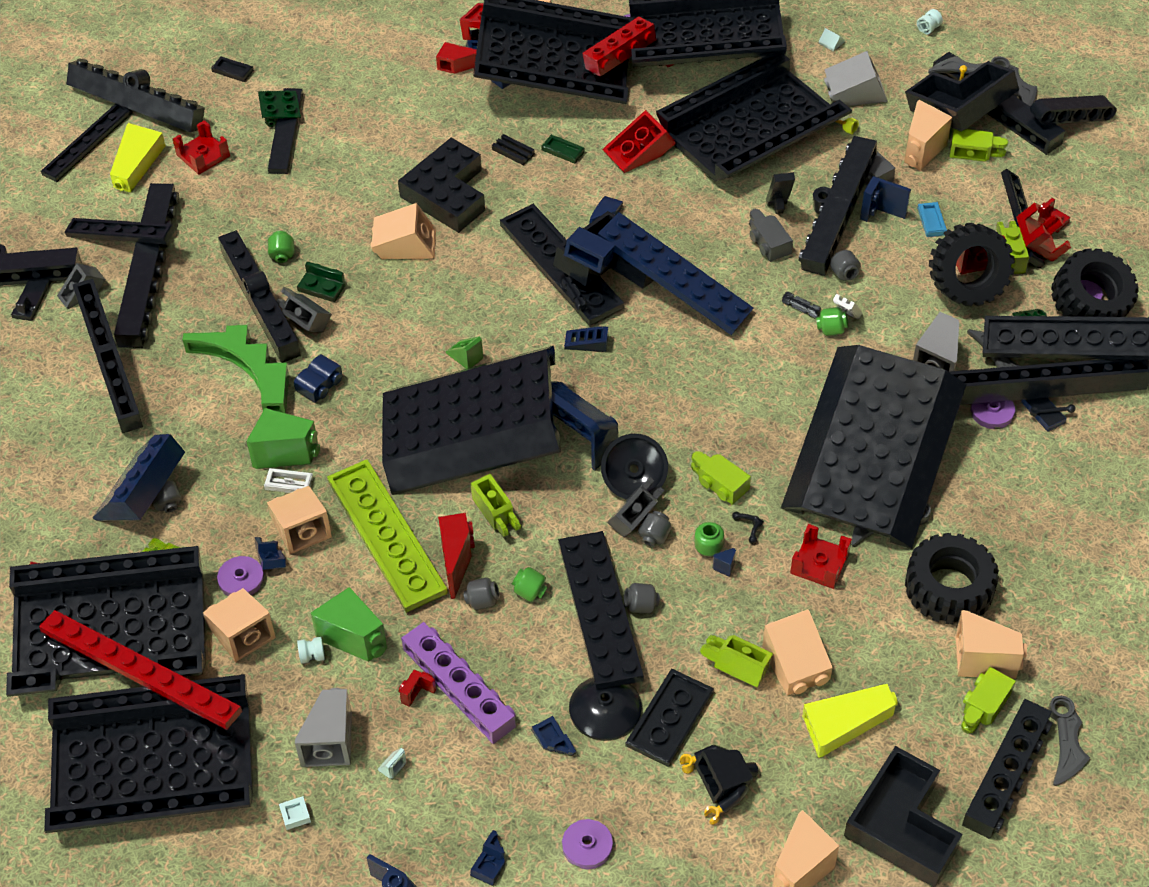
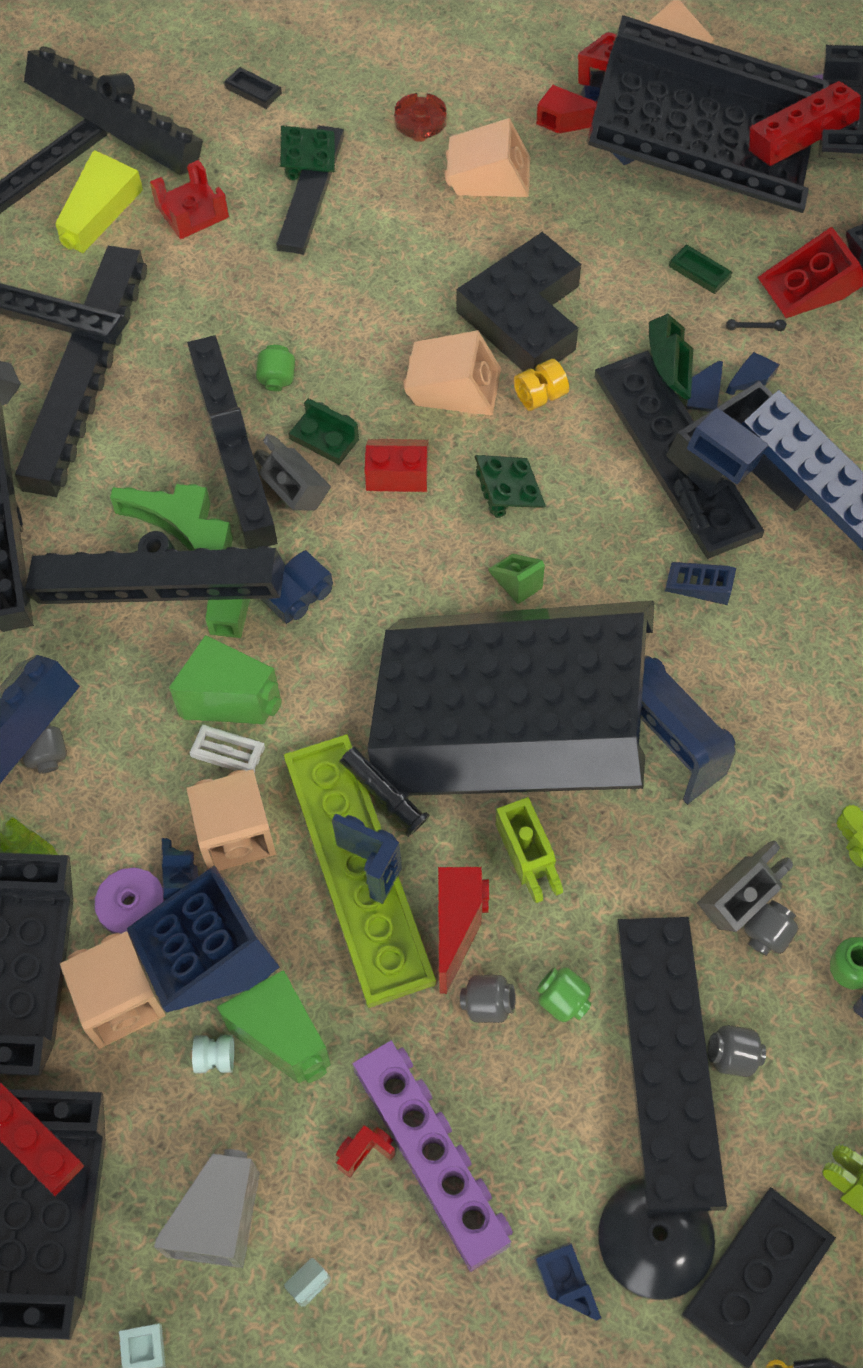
camera: 10 degrees right, 10 degrees up
(222, 381) = (156, 574): none -> black hinge
(295, 581) = (201, 944): none -> dark blue slope
(355, 81) = (420, 127): none -> clear red plate
(374, 297) = (396, 465): none -> red slope
(393, 514) = (377, 847): none -> dark blue bracket
(404, 492) = (394, 801): none -> black pin
(407, 97) = (488, 162): none -> light nougat slope
(450, 297) = (507, 483): none -> dark green hinge
(464, 233) = (543, 383): none -> yellow wheel
(515, 148) = (631, 258): black tile -> none
(549, 203) = (672, 354): none -> dark green slope
(574, 220) = (706, 388): none -> dark blue slope
(588, 181) = (779, 325): none -> black hinge
(629, 451) = (776, 807): black dish -> none

